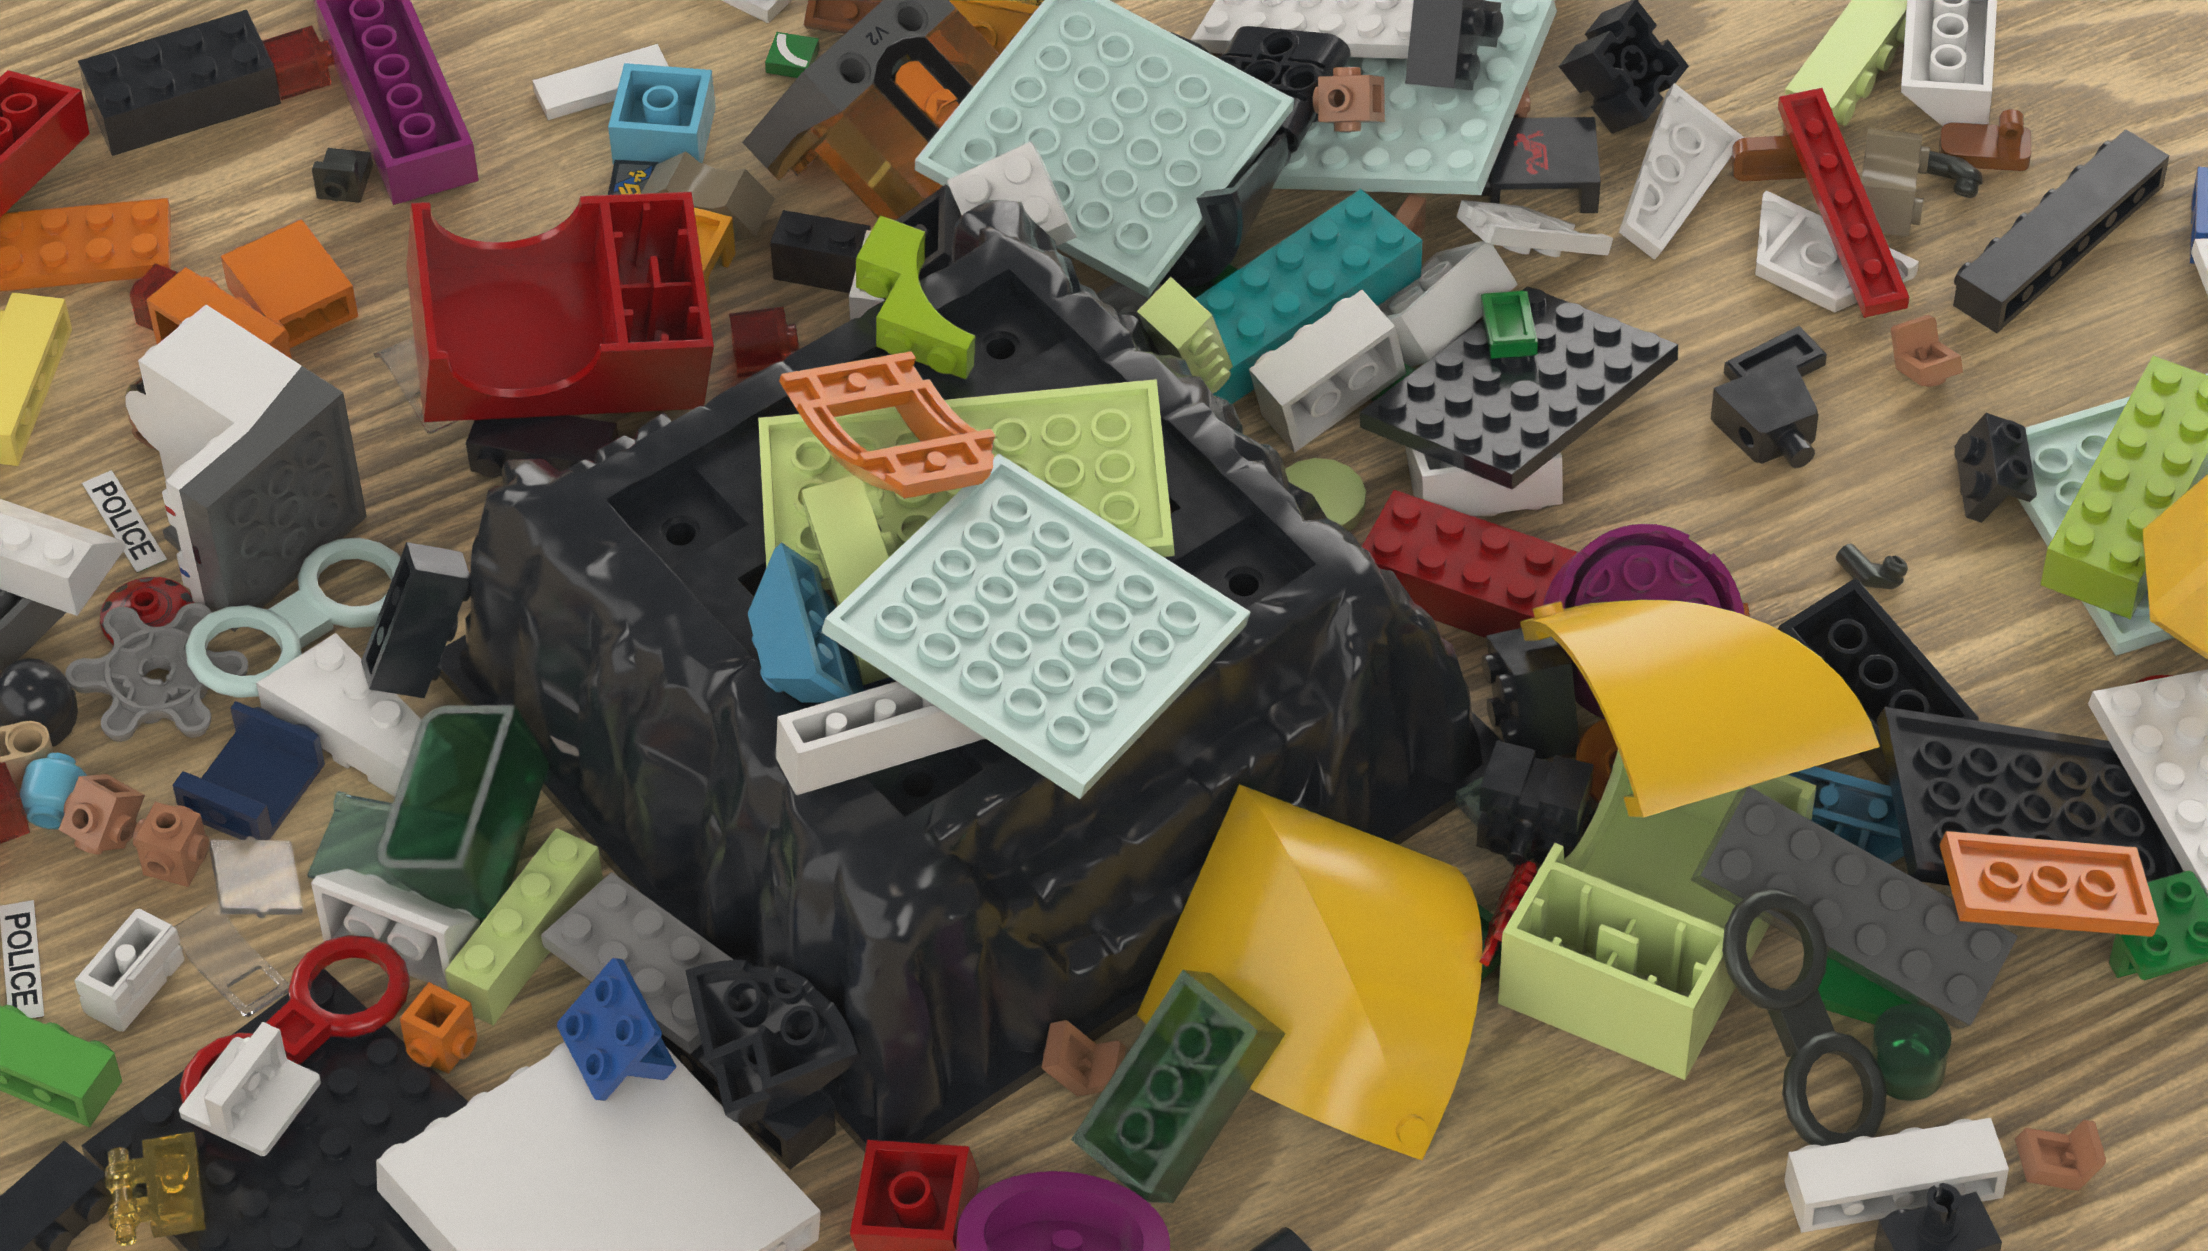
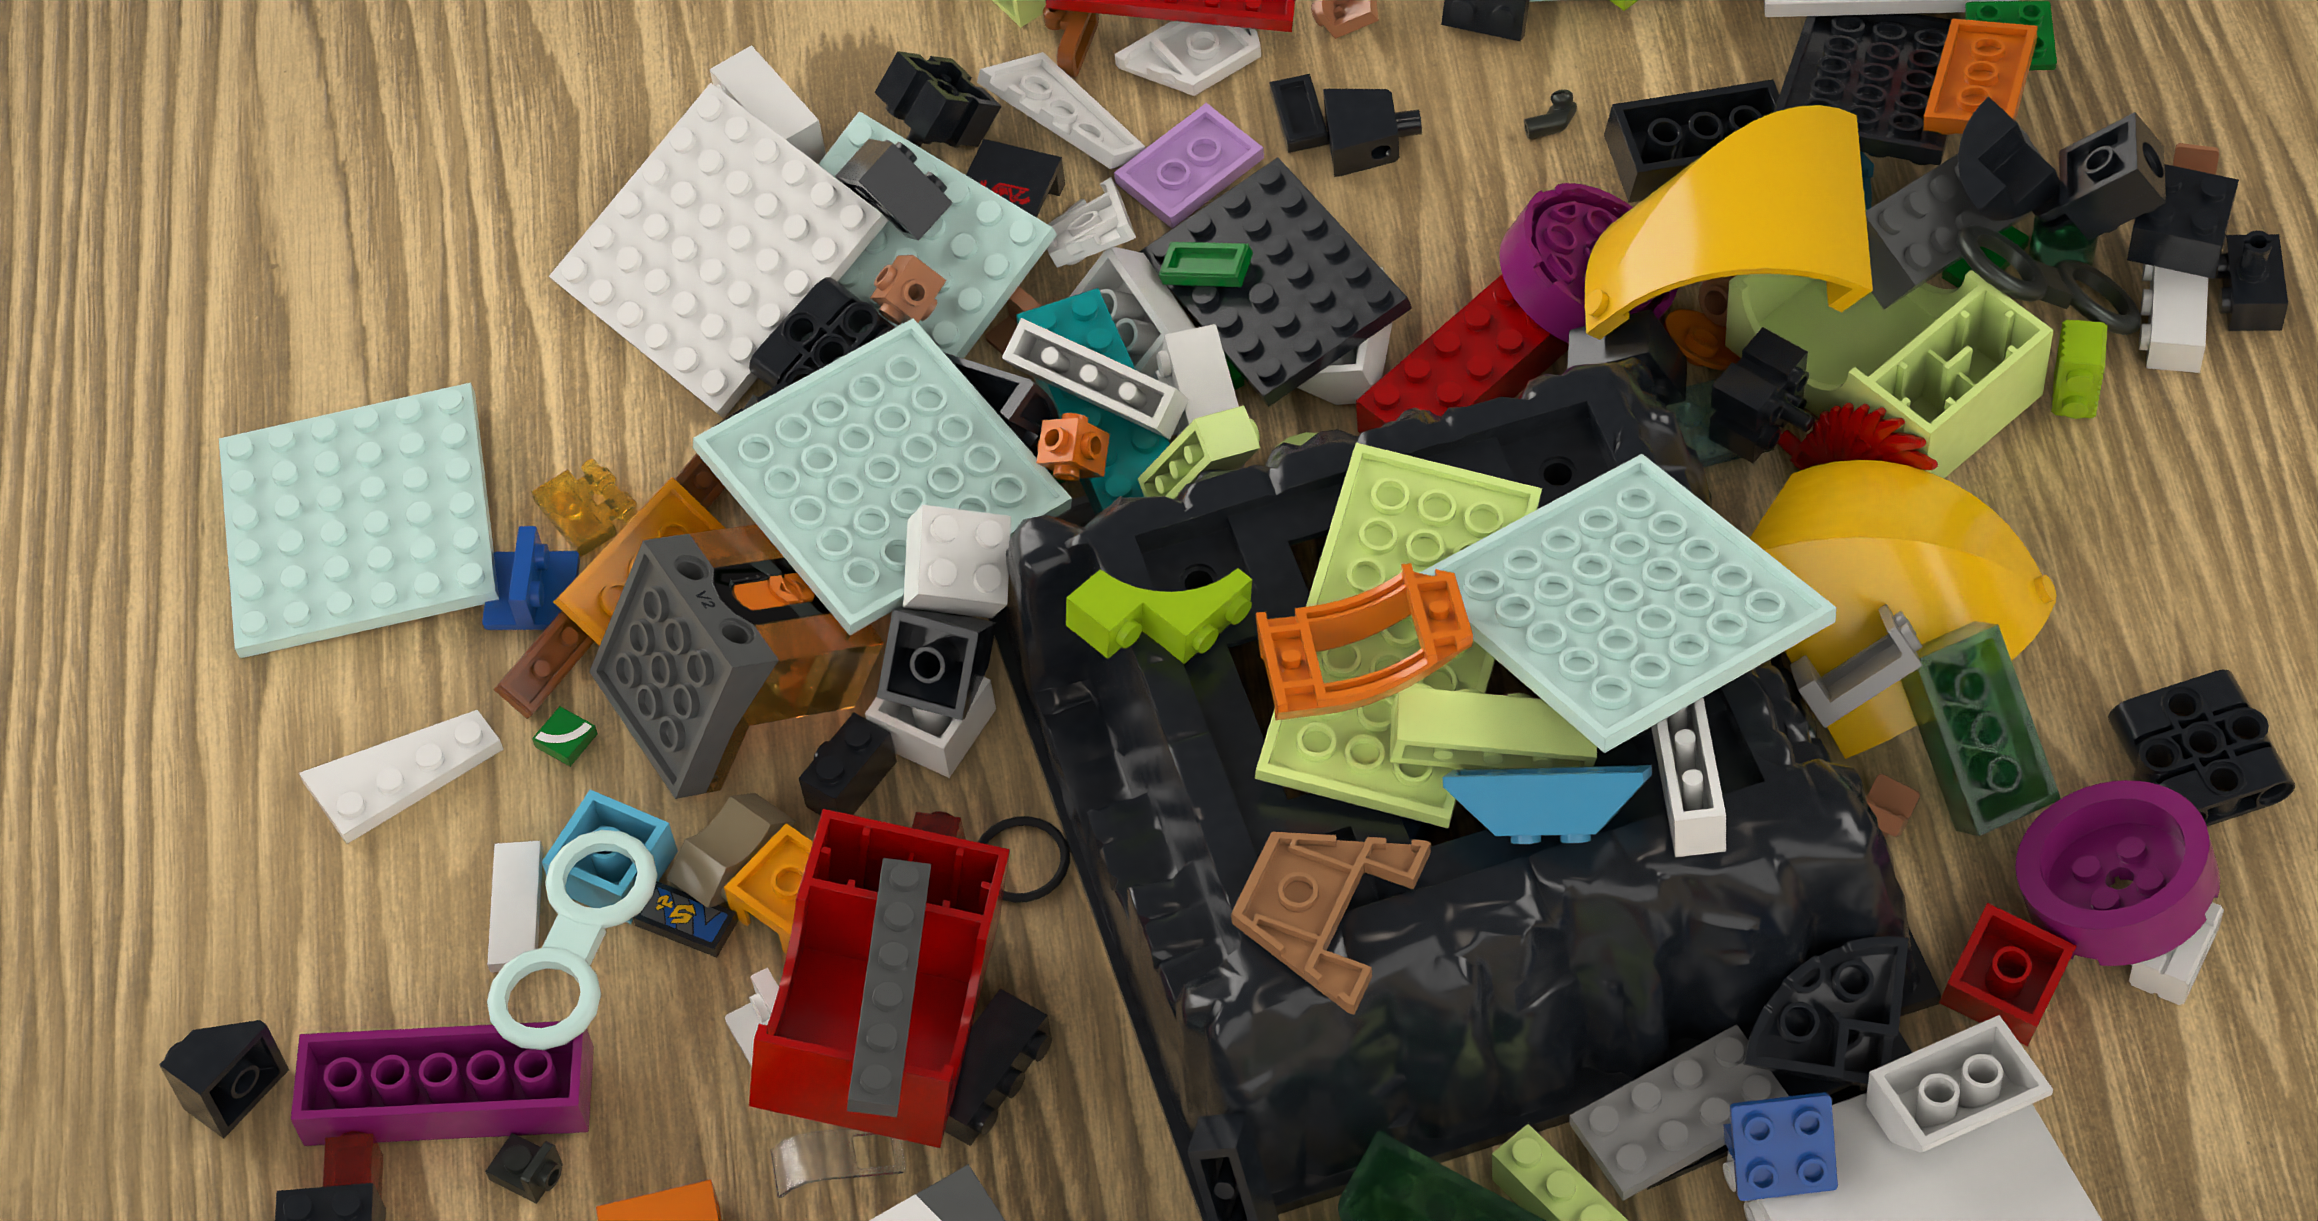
camera: 65 degrees left, 5 degrees up
(509, 285) = (889, 988): none -> dark grey plate
(548, 106) = (572, 940): none -> light aqua bar
(630, 491) = (1302, 894): none -> medium nougat wing
(726, 1155) = (1954, 1086): none -> white slope
(1161, 931) = (1861, 675): none -> light grey panel
(1199, 263) = (1072, 447): none -> orange brick
(1279, 252) = (1095, 378): none -> white brick
(1657, 292) = (1189, 165): none -> lavender plate
(1717, 1094) = (2079, 369): none -> lime brick
(1901, 915) = (2000, 168): none -> black brick
(1947, 1024) = (2107, 179): none -> black brick
(1956, 1129) = (2189, 227): none -> black brick

